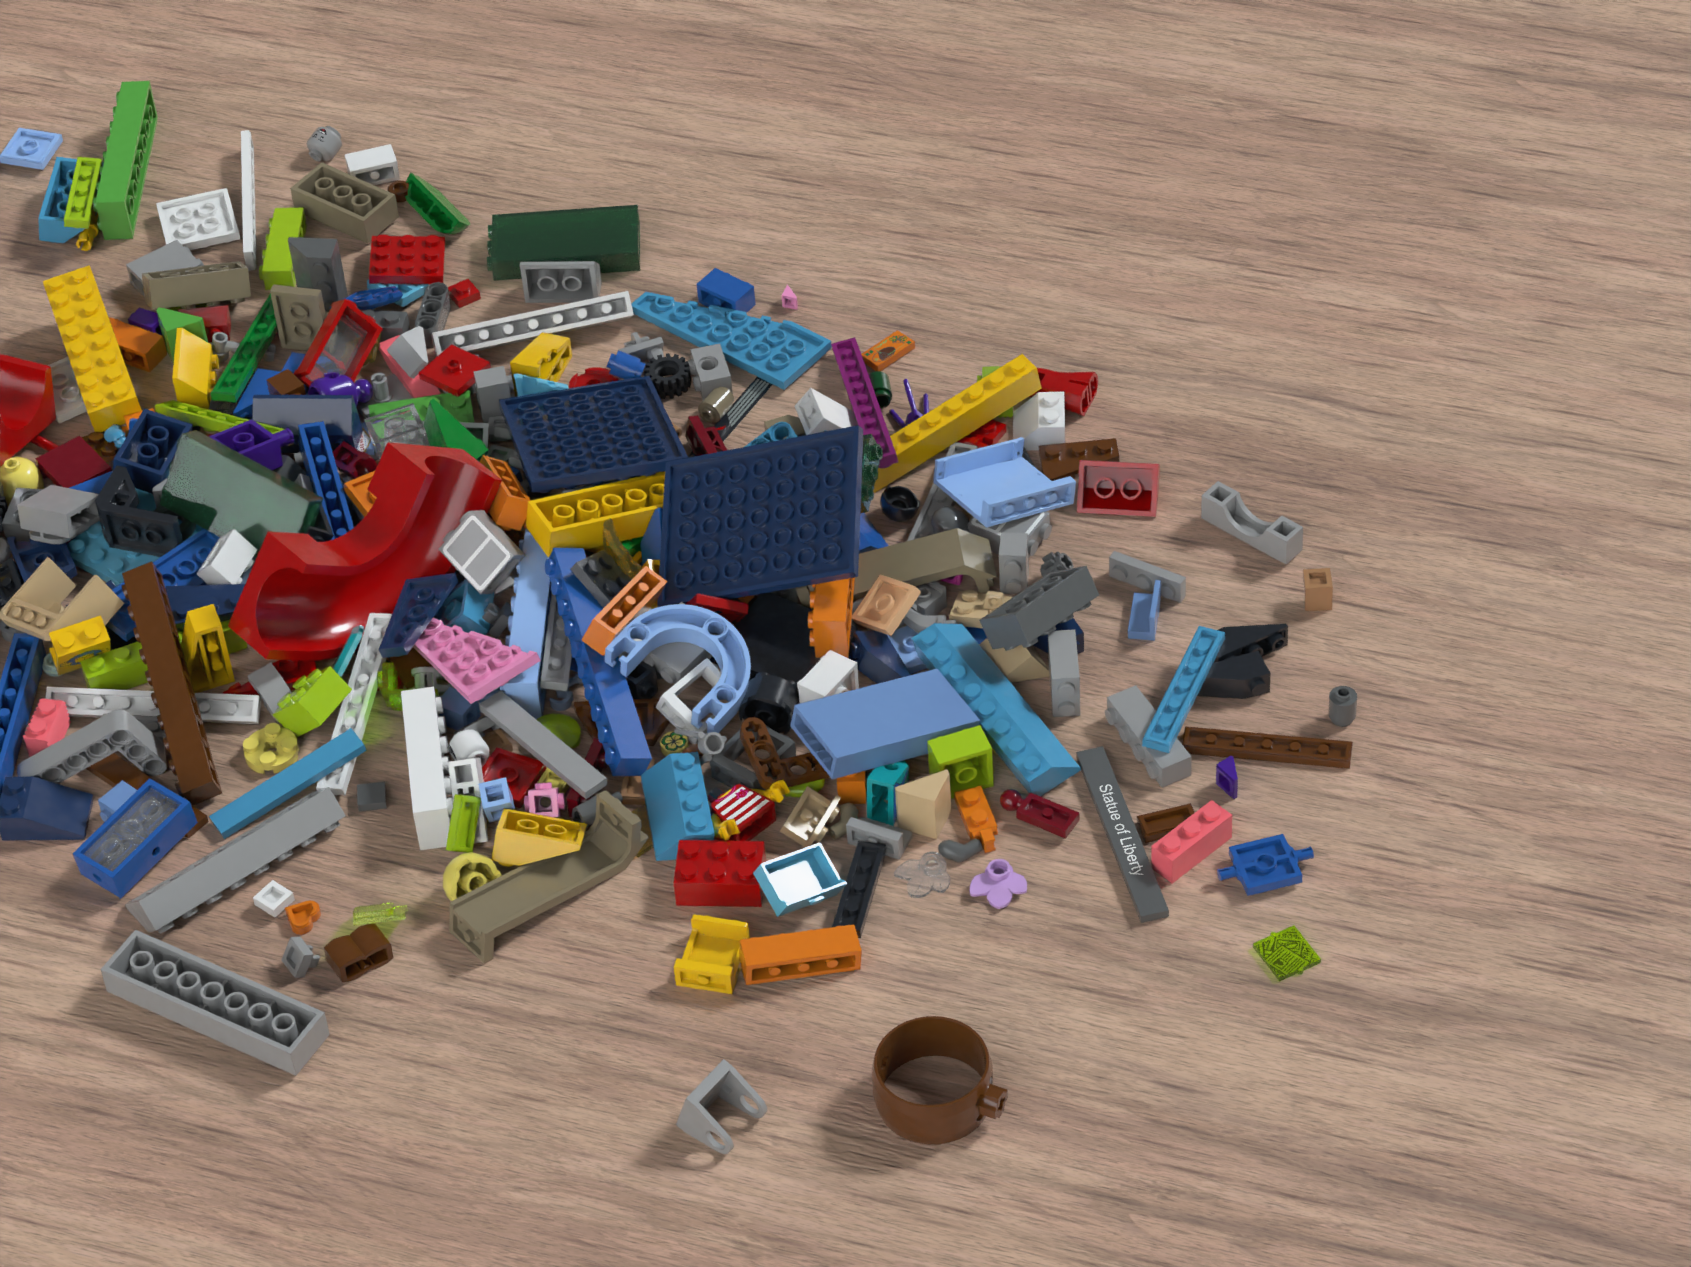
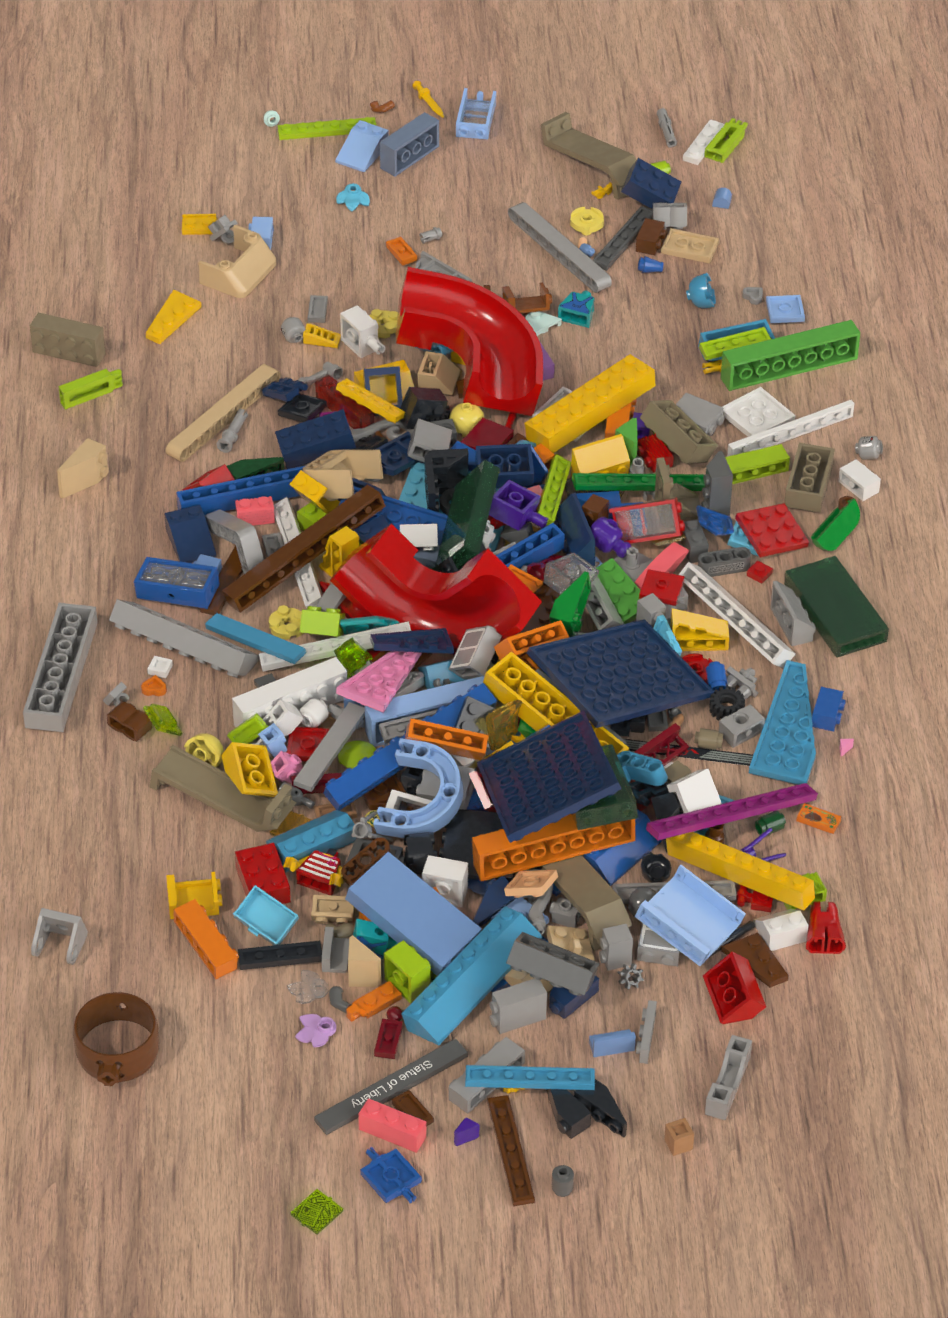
camera: 65 degrees right, 0 degrees up
(410, 351) = (664, 555): light grey slope -> none

